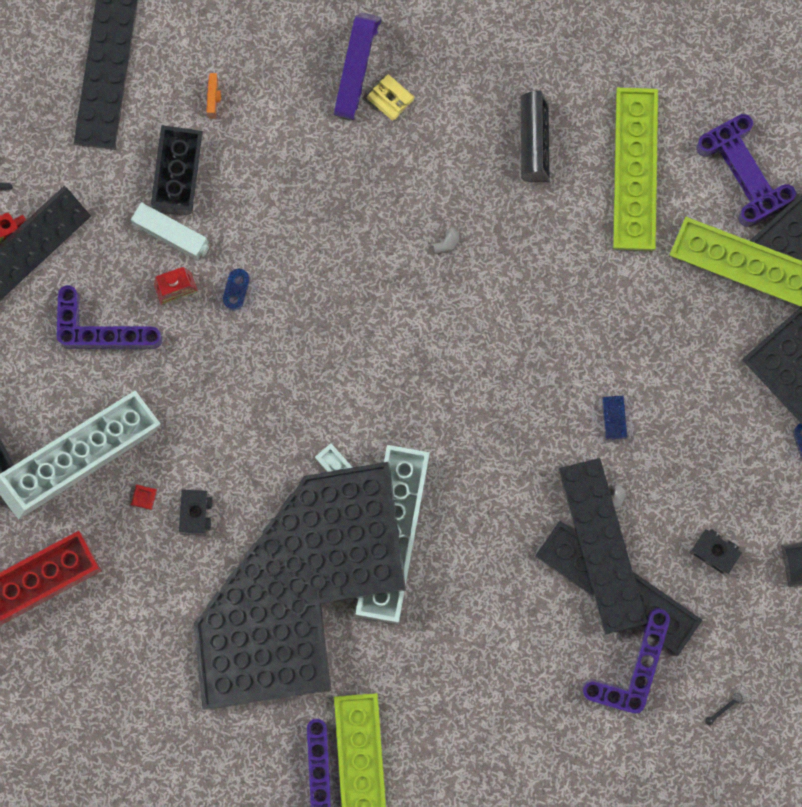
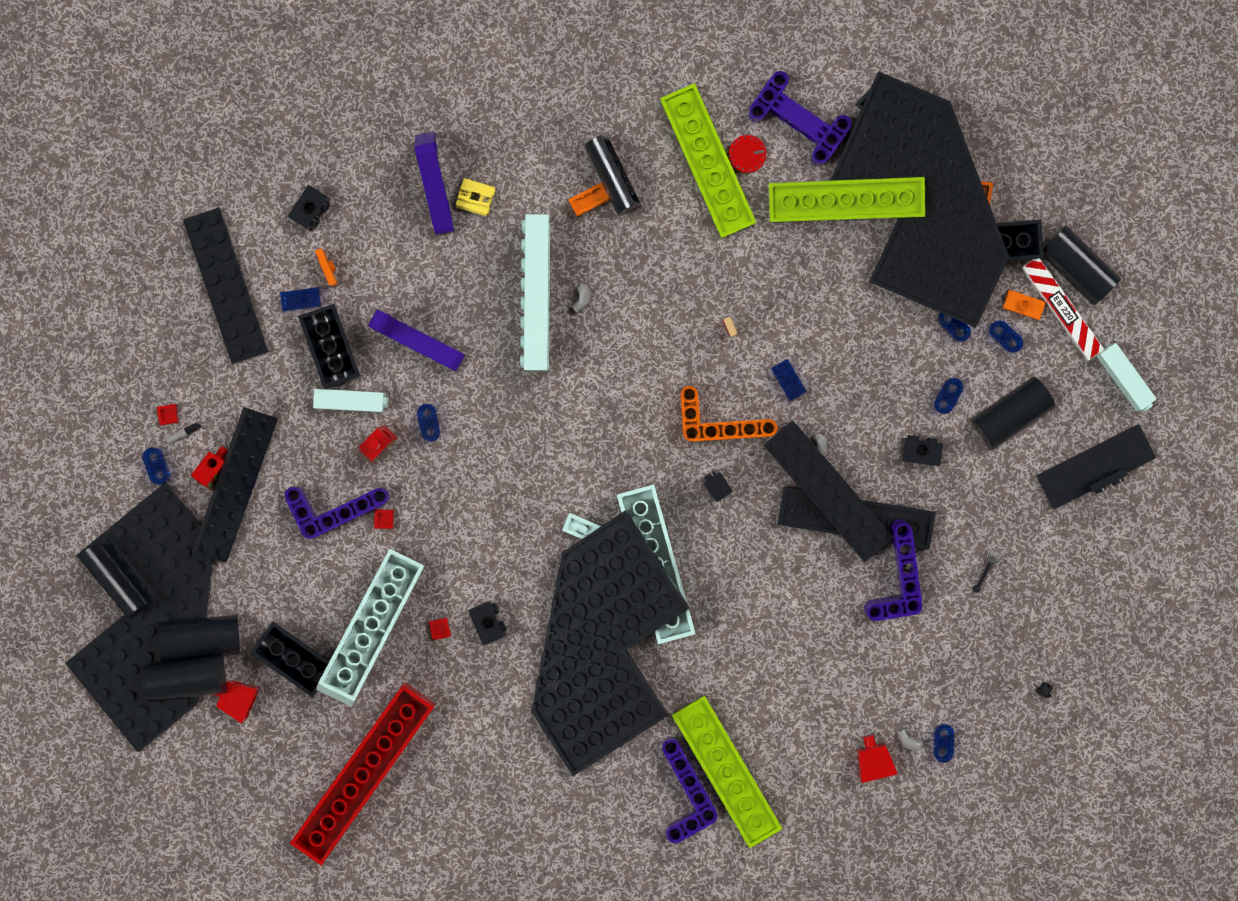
camera: 20 degrees left, 10 degrees up
(144, 362) = (383, 519): none -> red tile
(171, 113) = (300, 299): none -> clear blue plate
(229, 22) = (309, 197): none -> black brick
(242, 173) = (416, 340): none -> dark purple beam
(404, 214) = (537, 293): none -> light aqua brick
(492, 485) = (717, 486): none -> black brick
(500, 151) = (589, 199): none -> orange plate
(523, 429) = (719, 426): none -> orange beam
(580, 337) = (730, 328): none -> tan tile
(677, 180) = (747, 154): none -> red tile
(769, 510) = (948, 396): none -> clear blue plate

